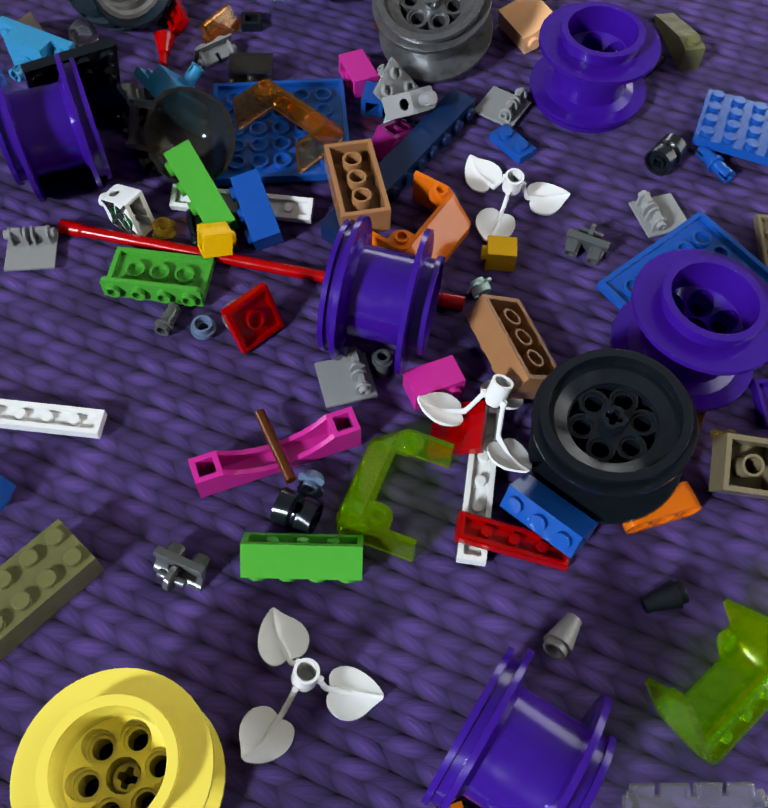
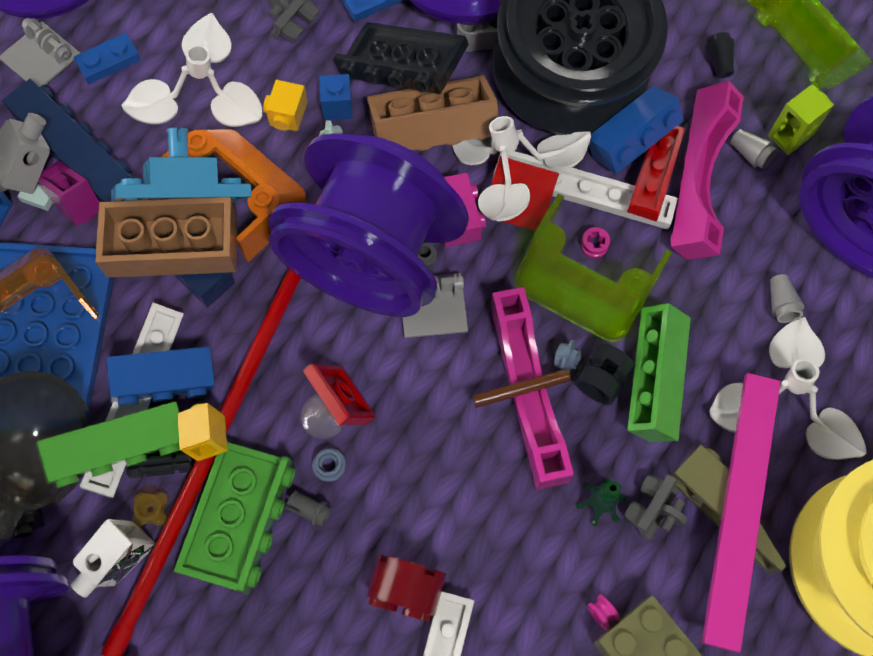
camera: 80 degrees left, 10 degrees up
(89, 532) = (603, 612): none -> dark pink bush
(103, 382) = (405, 585): none -> dark red brick
(175, 630) = (741, 514): none -> dark pink tile
(183, 520) = (603, 499): none -> dark green piece
(194, 618) = (704, 483): none -> olive slope
(399, 675) = (785, 300): none -> light grey cone
(401, 180) = (179, 177): none -> dark azure brick
(422, 505) = (588, 247): none -> dark pink bush
(517, 282) = (336, 97): none -> blue brick
(563, 318) = (403, 57): none -> black bracket
(575, 588) = (696, 227): none -> dark pink arch
(604, 673) = (800, 119): none -> lime brick

